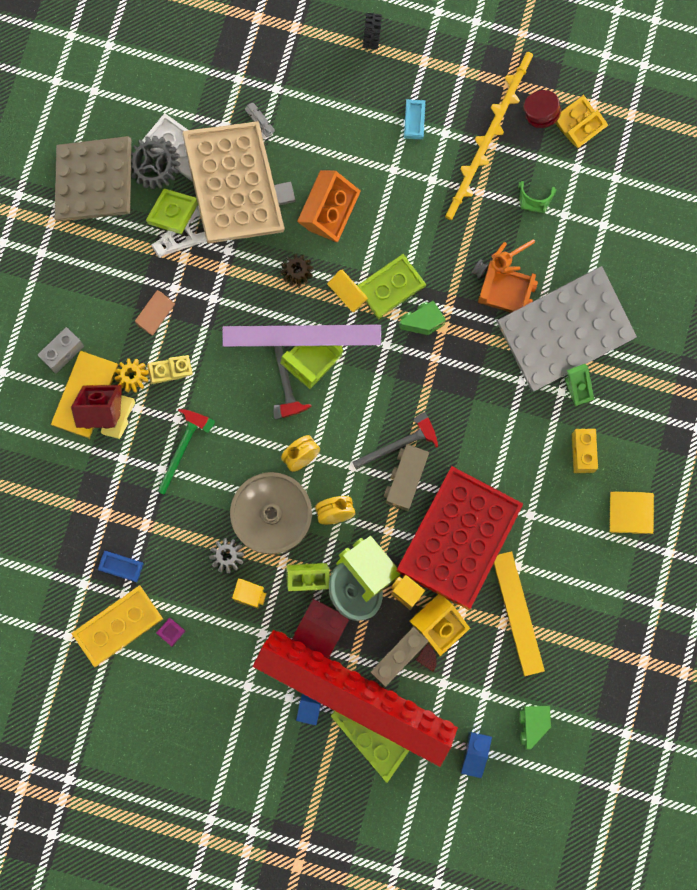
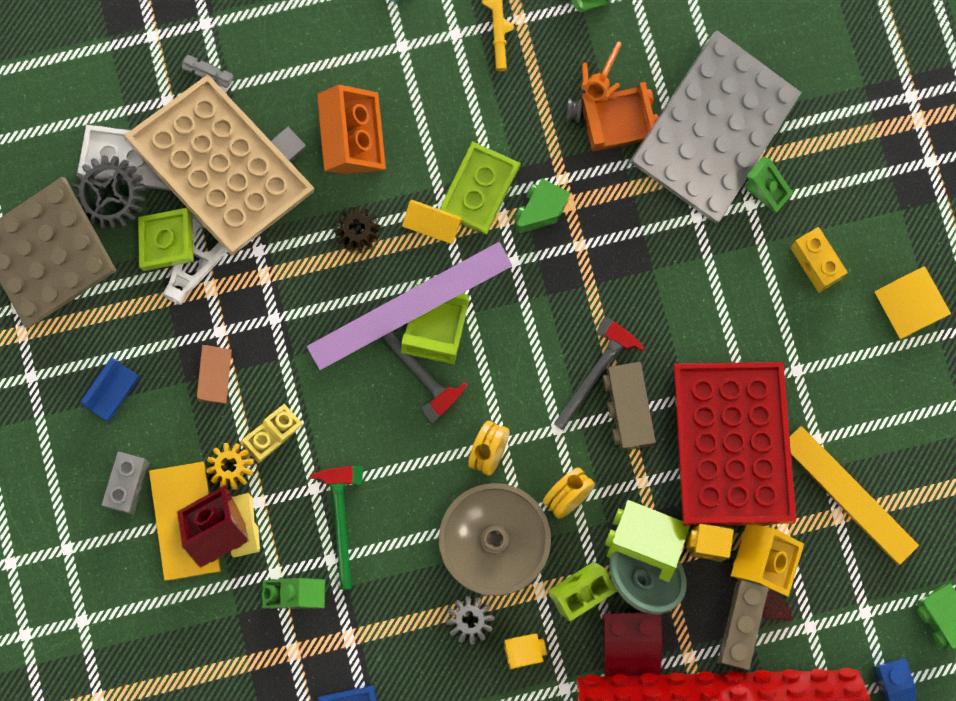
camera: 30 degrees left, 0 degrees up
(84, 286) = (110, 390): none -> blue panel
(125, 477) = (293, 593): none -> bright green slope

